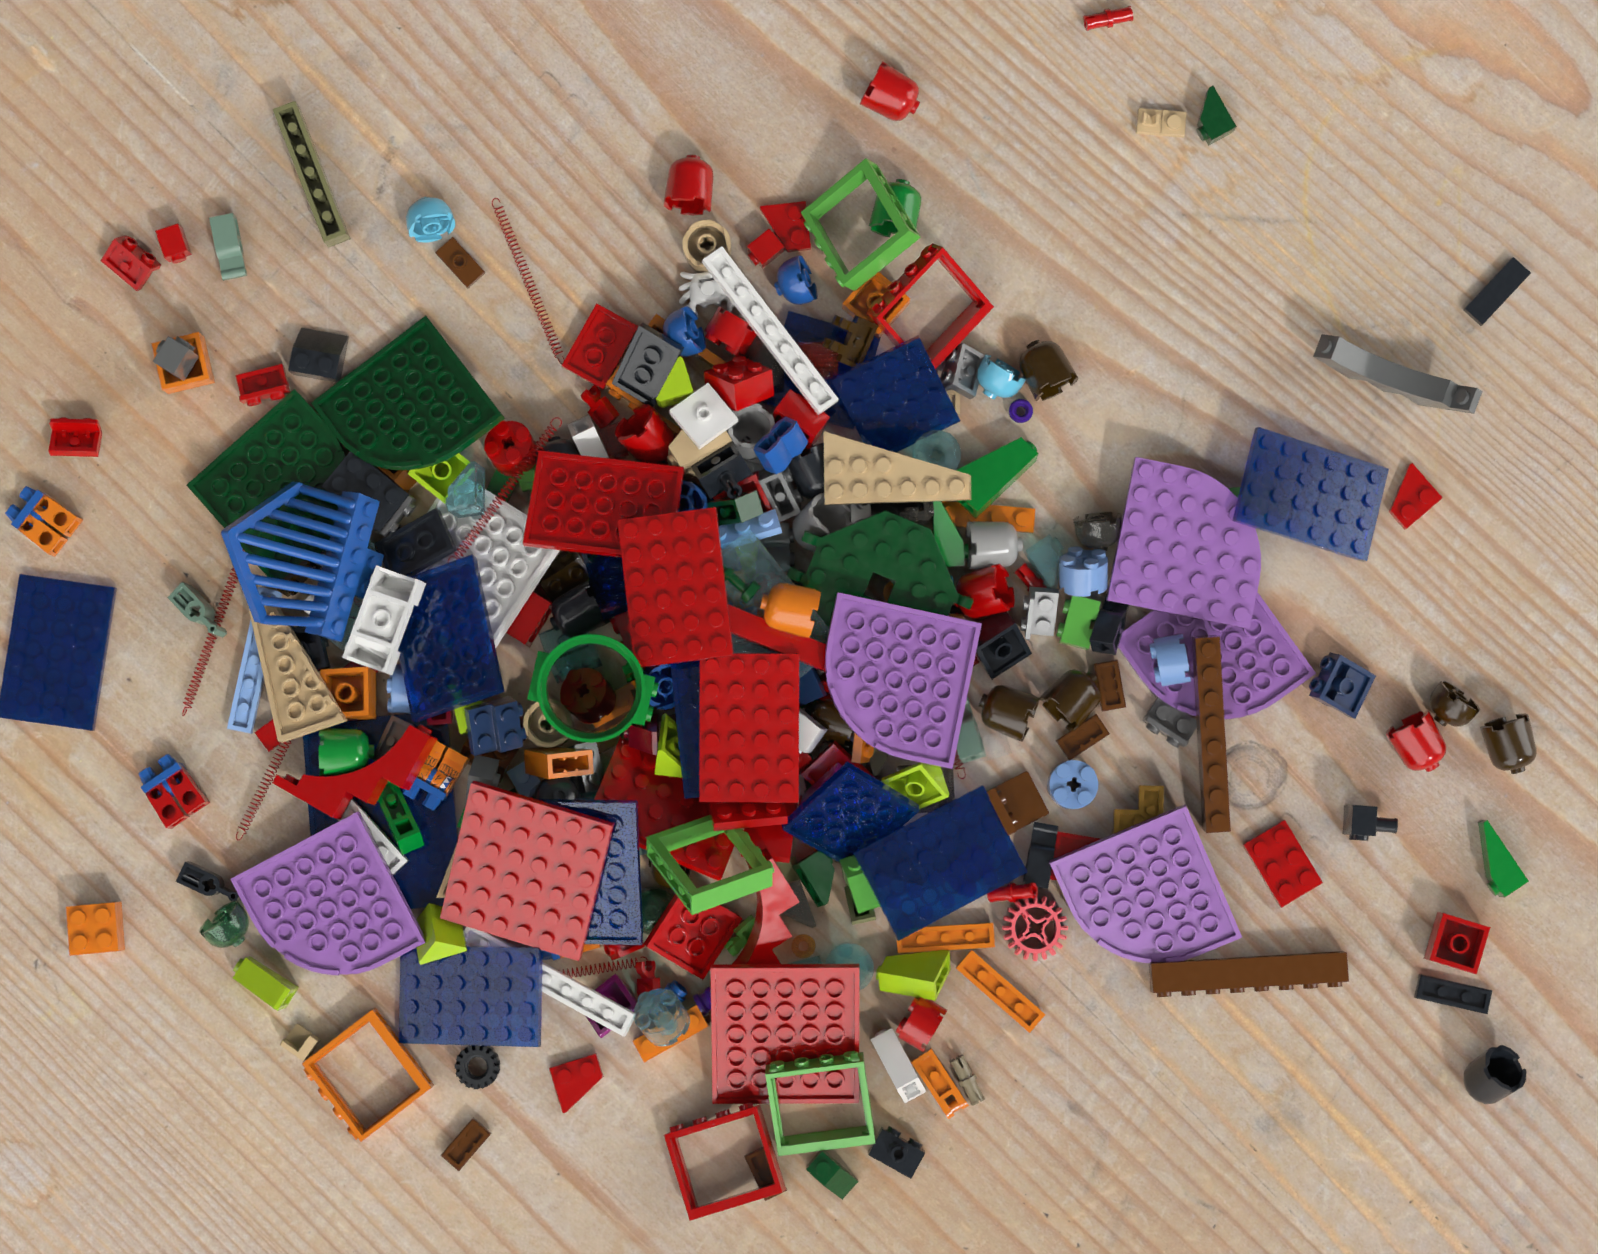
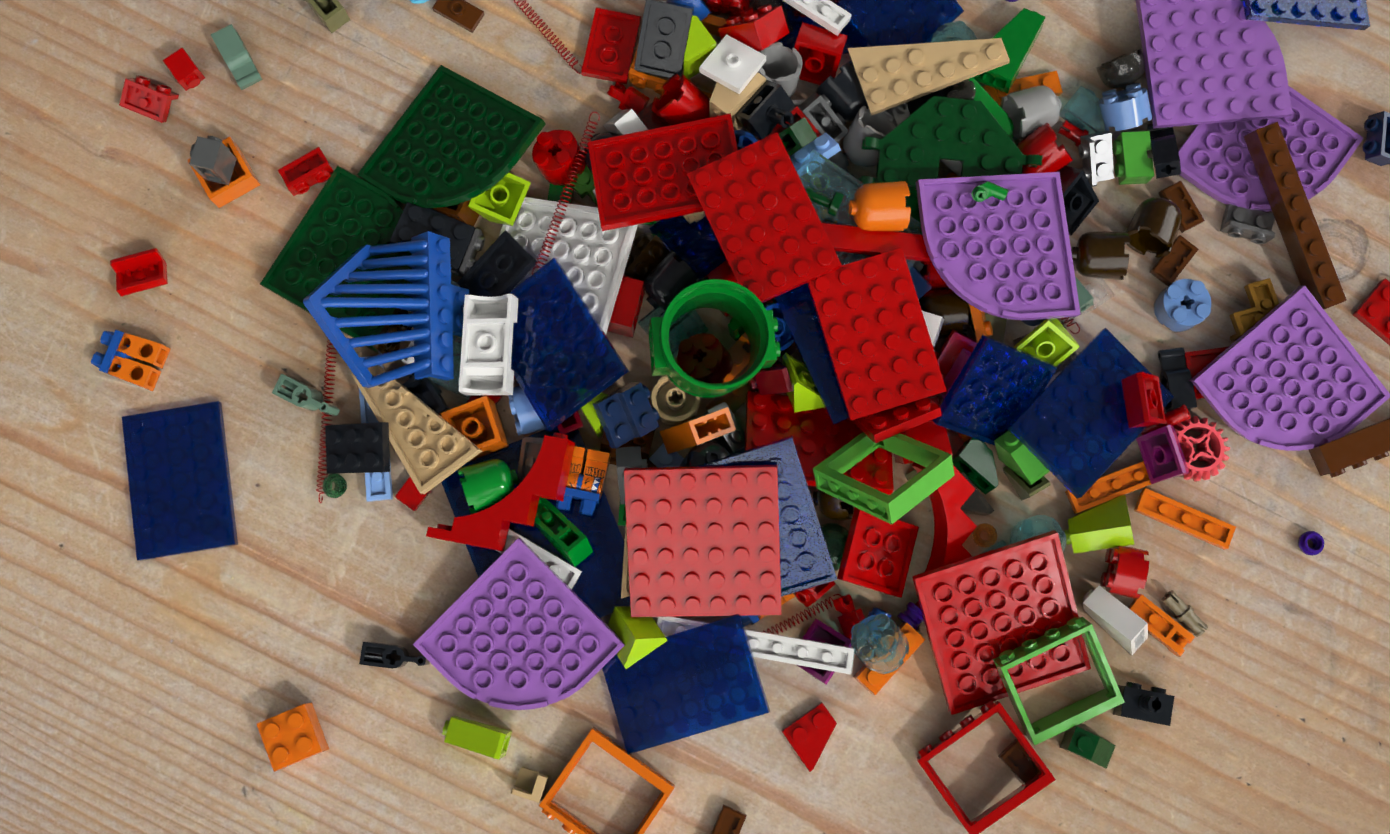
camera: 25 degrees left, 5 degrees down
(170, 790) = (326, 570): red hips -> none
(205, 707) = (340, 485): none -> clear green plate
(227, 927) = (424, 693): clear green cylinder -> none
(232, 676) = (357, 448): none -> black plate
(263, 788) = (419, 542): red piece -> none
(318, 355) = (351, 131): black slope -> none
(465, 1075) = (720, 765): black tyre -> none
(467, 492) = (530, 206): clear light blue slope -> none
(743, 932) = (925, 541): bright green plate -> none
(780, 445) = (813, 70): blue brick -> none
(901, 622) = (987, 190): none -> green arm
(992, 868) = (1143, 400): none -> red slope
(997, 924) = (1162, 454): none -> magenta slope
(1017, 802) = (1139, 336): reddish brown bracket -> none
(1114, 1060) = (1318, 543): none -> dark purple plate
(1171, 660) = (1235, 160): medium blue brick -> none

